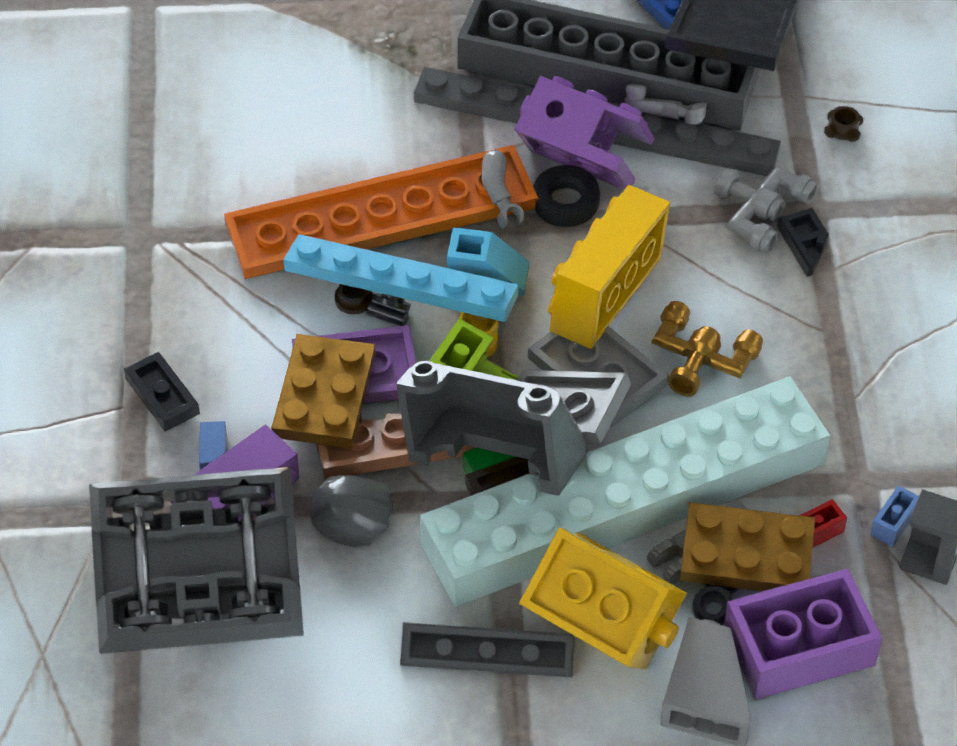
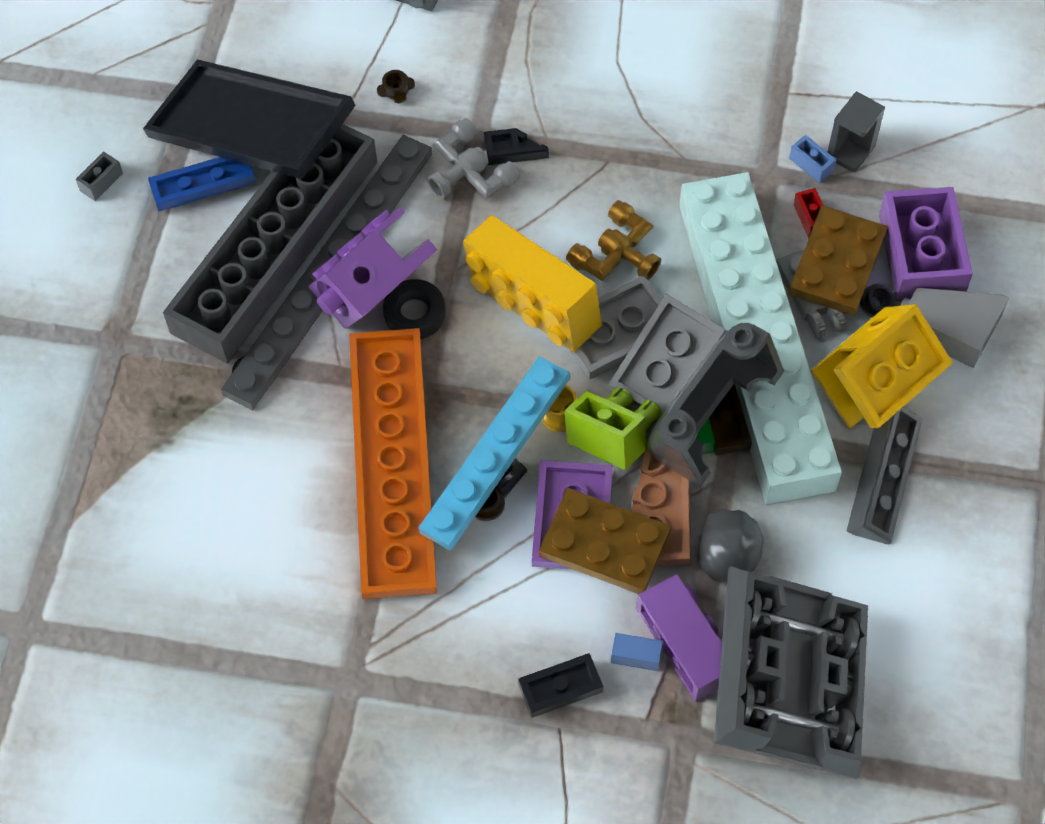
camera: 75 degrees left, 10 degrees up
(487, 256) = (486, 387): medium azure slope -> none
(493, 179) = (383, 349): light grey arm -> none
(672, 109) = (337, 218): light grey arm -> none

